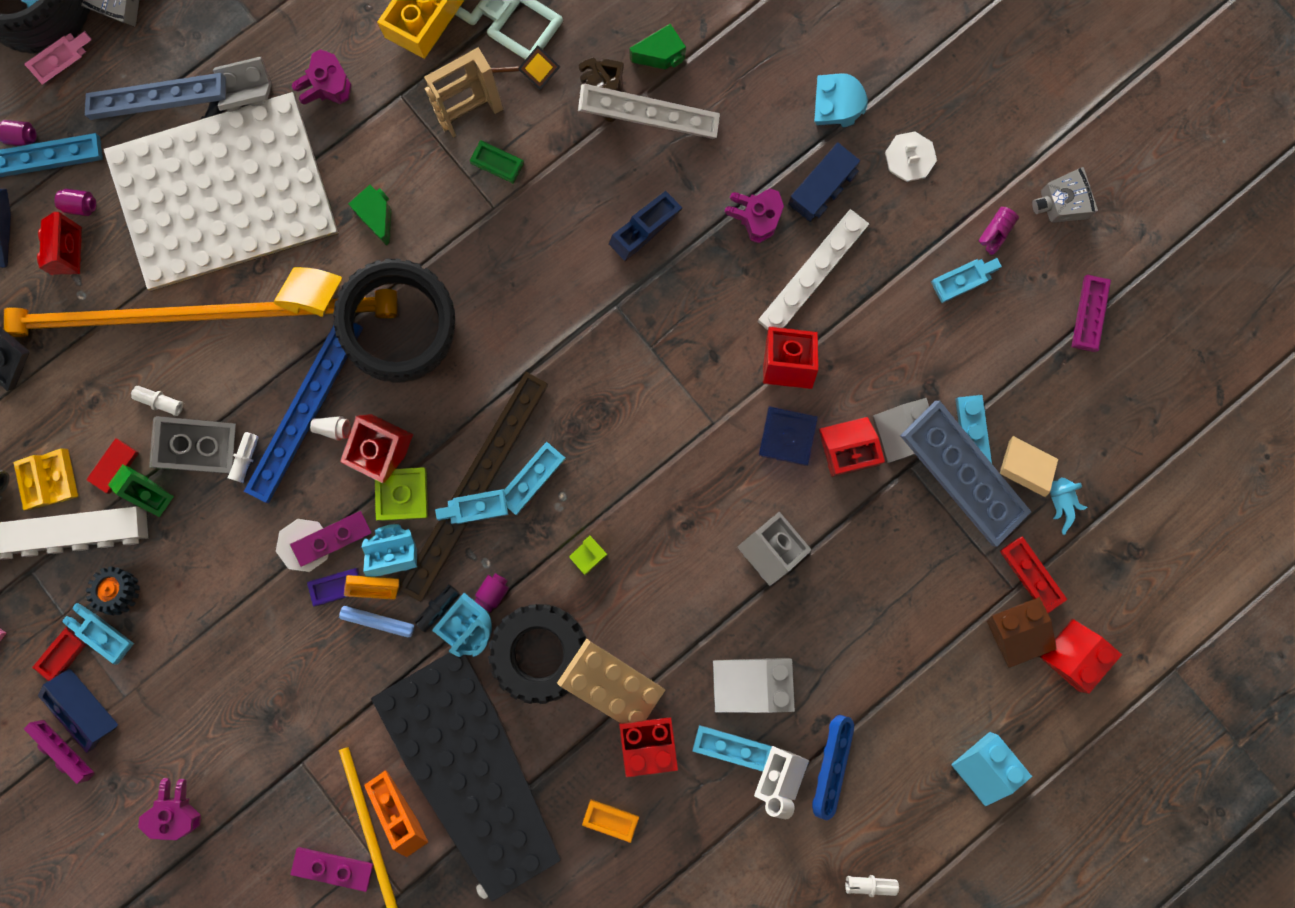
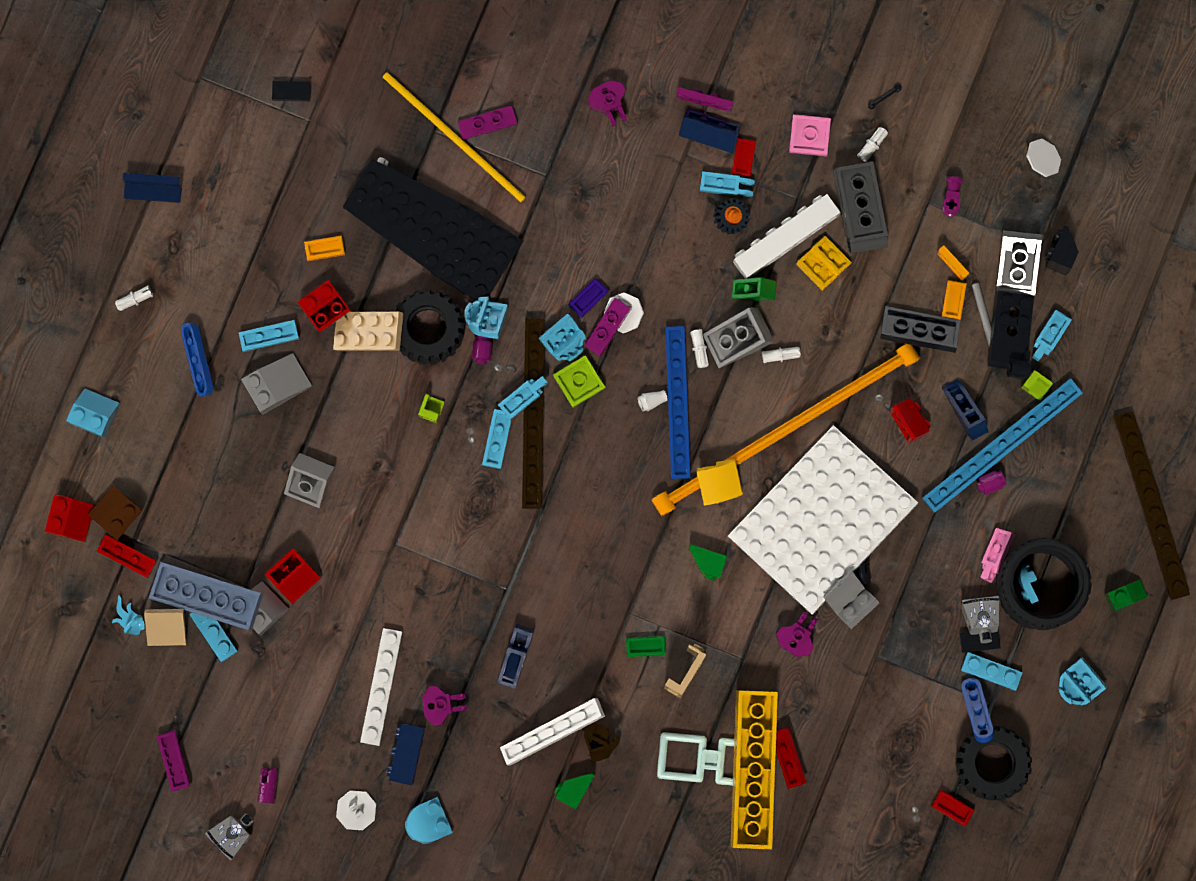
camera: 155 degrees right, 0 degrees up
(75, 202) = (919, 457): magenta brick -> none
(110, 463) = (784, 296): red tile -> none
(155, 96) = (907, 559): sand blue plate -> none
(371, 587) = (562, 309): light orange tile -> none
(375, 447) = (612, 402): red slope -> none
(376, 621) = (548, 290): light blue axle -> none
(384, 273) = (612, 468): black tyre -> none
(395, 815) = (465, 177): orange slope -> none
(437, 608) = (512, 320): black pin -> none
(537, 68) = (655, 729): piece -> none
(781, 782) = (226, 331): white hinge -> none
(788, 436) = (339, 561): clear blue plate -> none
(790, 358) = (365, 615): red slope -> none
(964, 279) = (273, 738): medium azure hinge -> none

